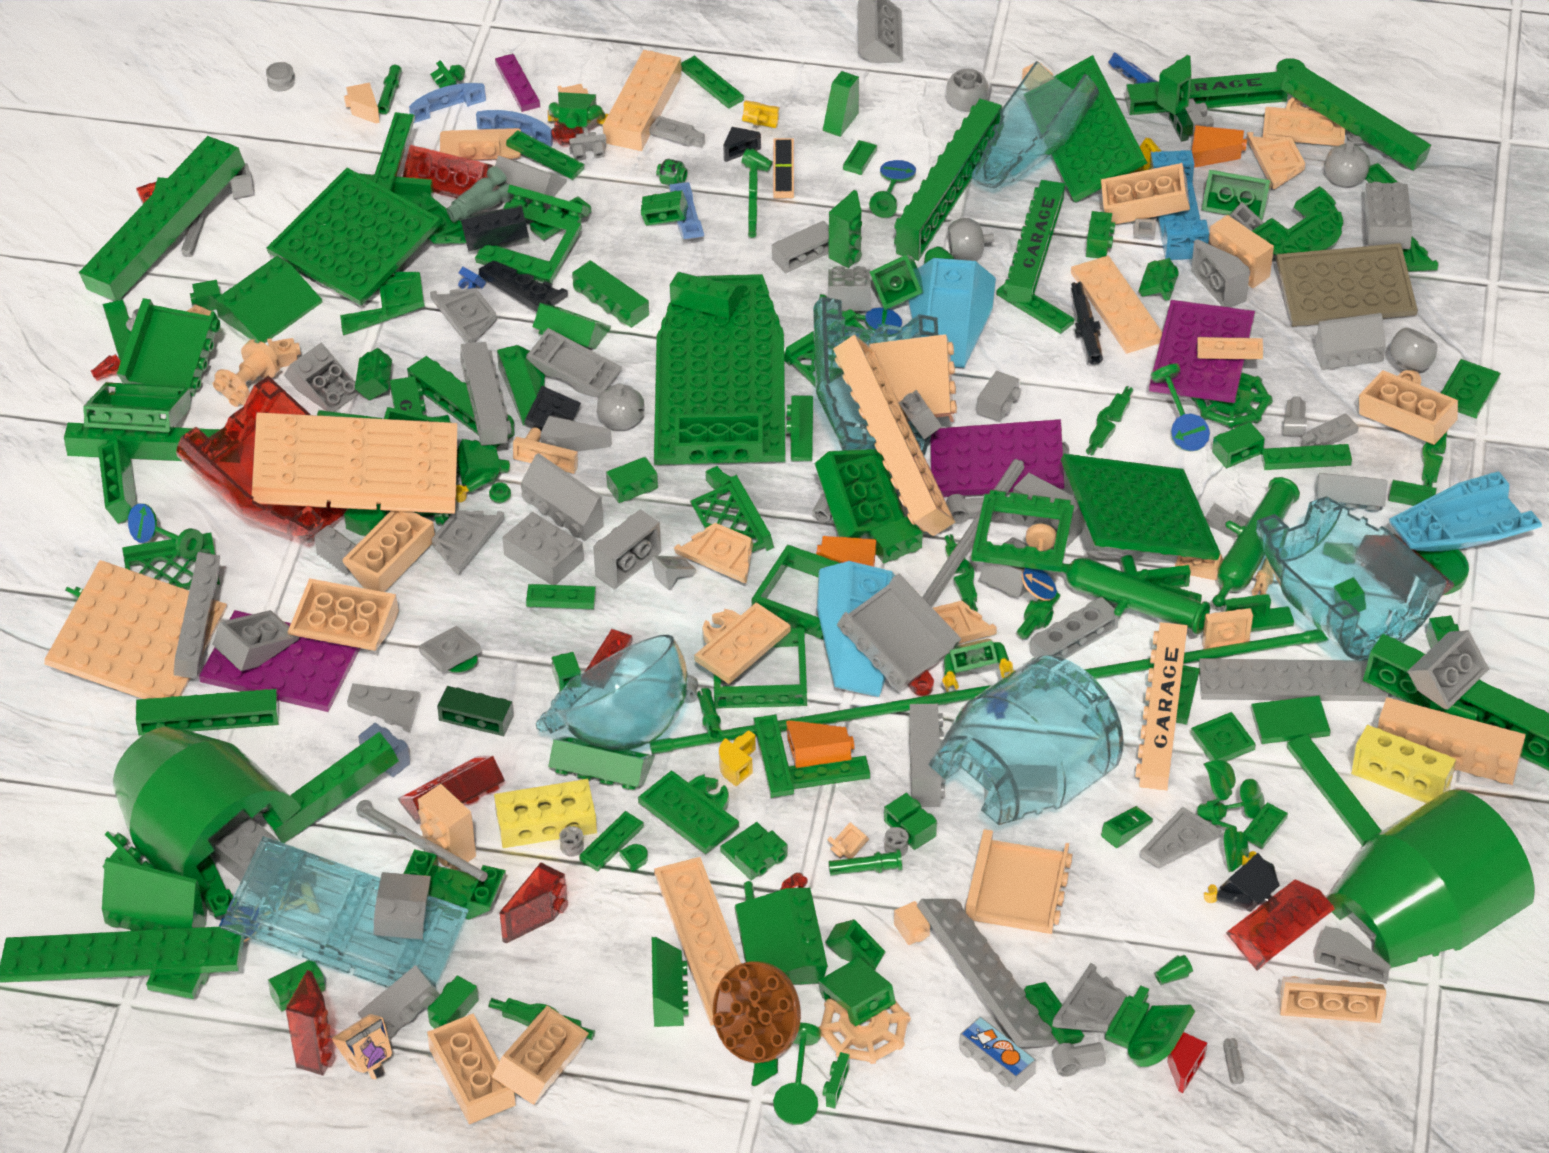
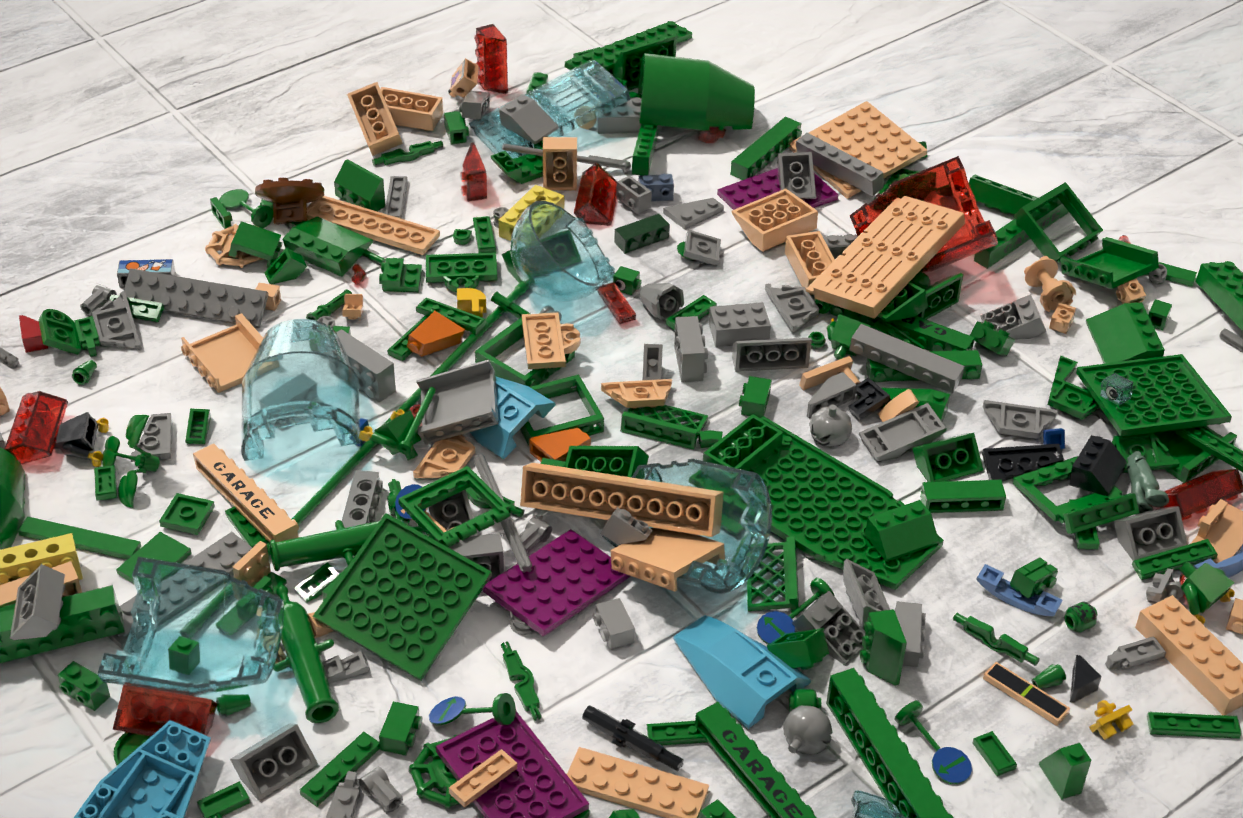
camera: 130 degrees right, 5 degrees down
(386, 242) = (1116, 389): none -> clear light blue brick
(421, 752) = (633, 194): none -> light grey brick
(545, 375) = (900, 404): none -> light nougat slope
(573, 619) = (662, 299): none -> light grey cone
(629, 964) = (396, 196): none -> light grey tile
(802, 276) = (863, 591): none -> light grey slope
(991, 625) = (405, 446): none -> green bar

